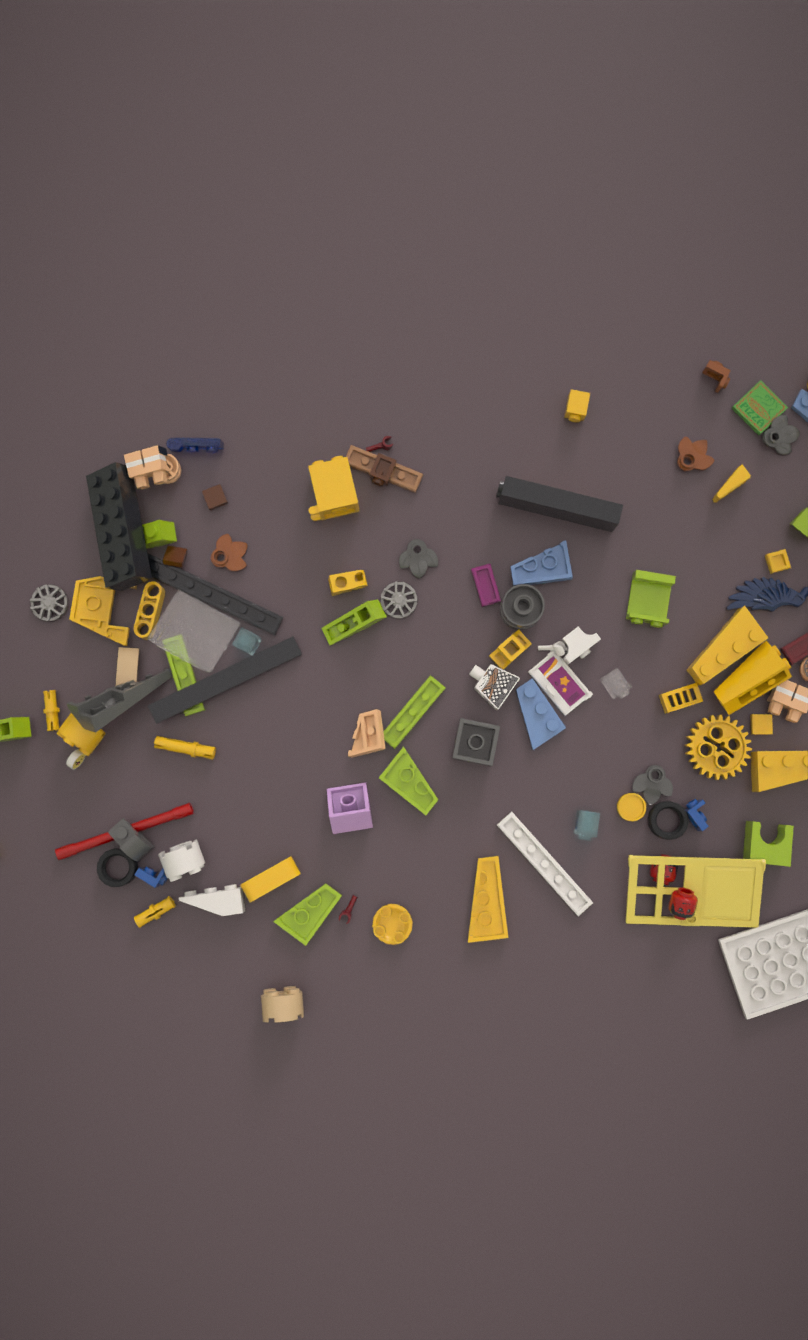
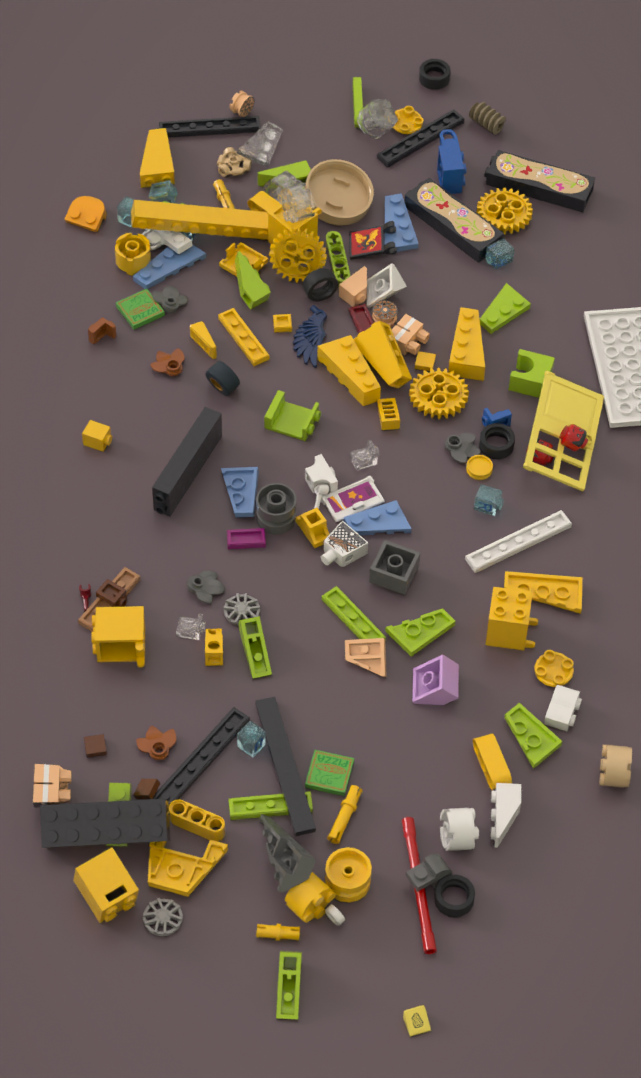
camera: 80 degrees left, 30 degrees down
(54, 543) = (99, 878): none -> yellow container
(102, 763) = (348, 874): none -> yellow wheel
(127, 665) = (249, 850): tan slope -> none
(148, 875) = (471, 863): blue bracket -> none
(154, 911) = (506, 869): yellow pin -> none
(194, 444) = (36, 751): clear blue hinge -> none
(194, 631) = (229, 783): clear piece -> none
(229, 723) = (329, 772): none -> bright green tile
(345, 940) = (562, 708): none -> white brick
(348, 910) = (541, 703): dark red hand -> none
(366, 555) = (191, 627): none -> clear bracket
(432, 871) = (510, 619): none -> yellow container
(680, 515) = (222, 378): none -> black wheel
(748, 524) = (243, 337): none -> yellow tile

